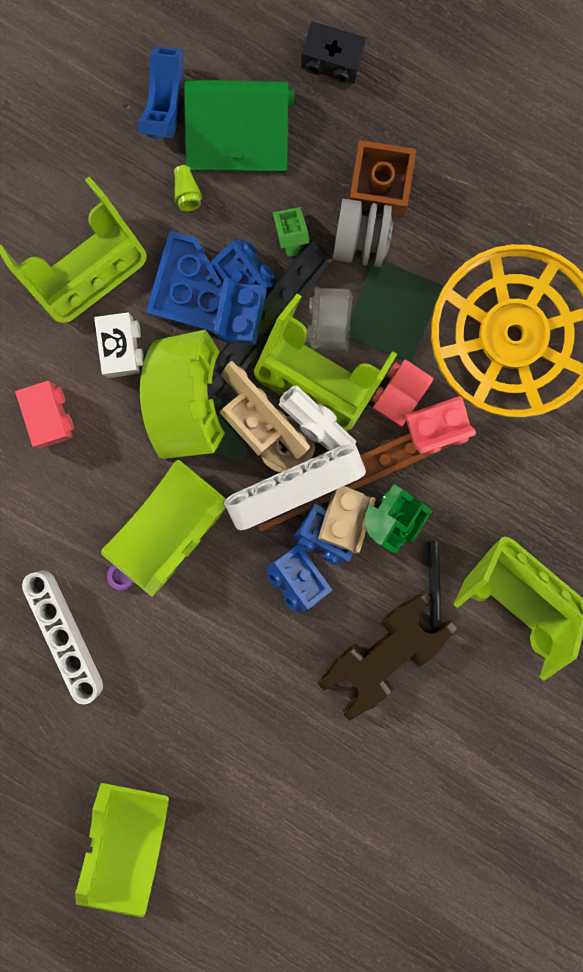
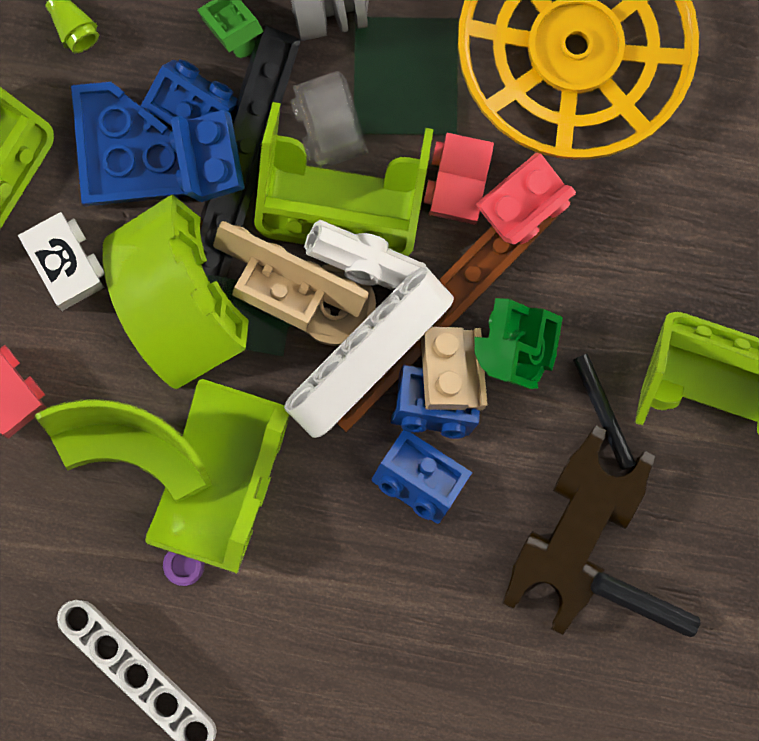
camera: 30 degrees left, 5 degrees down
(102, 471) = (120, 432): none -> lime panel
(410, 722) = (645, 604): none -> black axle

